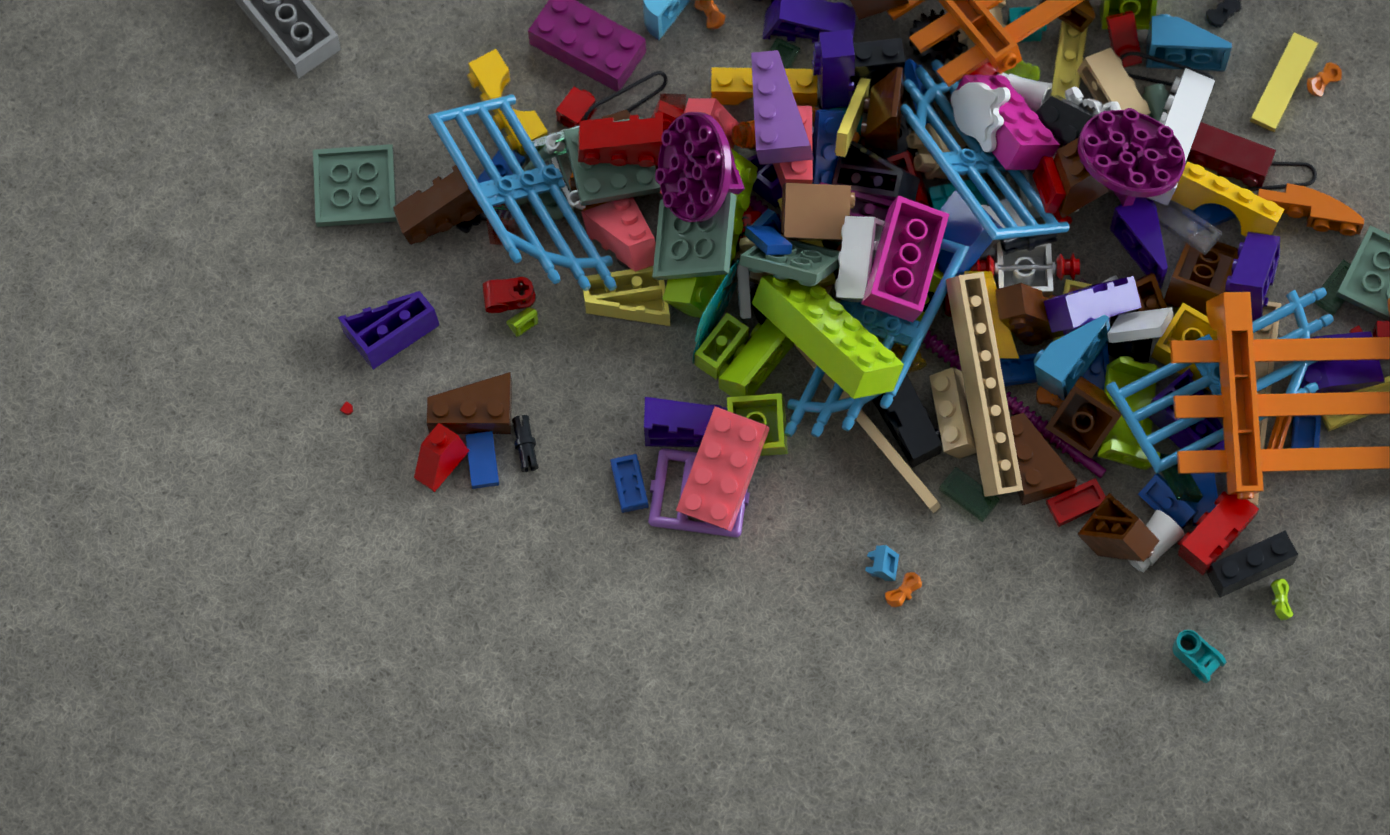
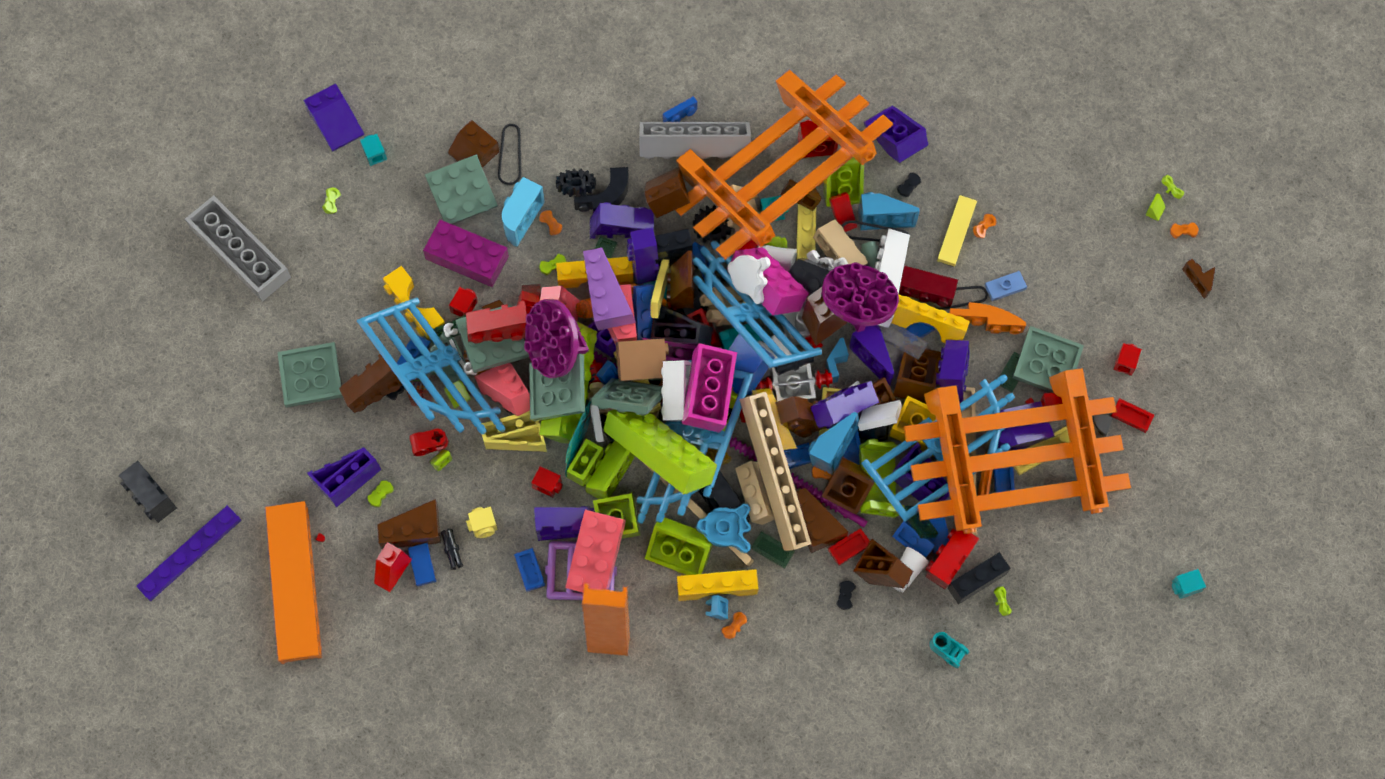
camera: 10 degrees left, 0 degrees up
(117, 320) = (147, 492): none -> black wedge
(166, 409) = (188, 553): none -> dark purple plate
(304, 463) = (293, 582): none -> orange tile
(434, 358) = (380, 493): none -> lime piece
(561, 225) = (462, 390): none -> lime slope
(570, 411) = (481, 522): none -> light yellow brick
(628, 88) = (506, 278): black piece -> none
(666, 367) = (547, 482): none -> red brick
(697, 73) = (547, 267): none -> lime piece
(728, 556) = (606, 620): none -> orange tile
(768, 240) = (610, 384): blue tile -> none
(840, 476) = (678, 547): none -> lime slope
(859, 530) = (701, 585): none -> yellow arch
(907, 453) = (726, 527): none -> dark azure tile
(1049, 184) = (804, 322): red tile -> none
(1063, 566) = (844, 601): none -> black piece
(1092, 238) = (838, 355): none -> dark azure slope
(1343, 167) = (1005, 286): none -> medium blue plate

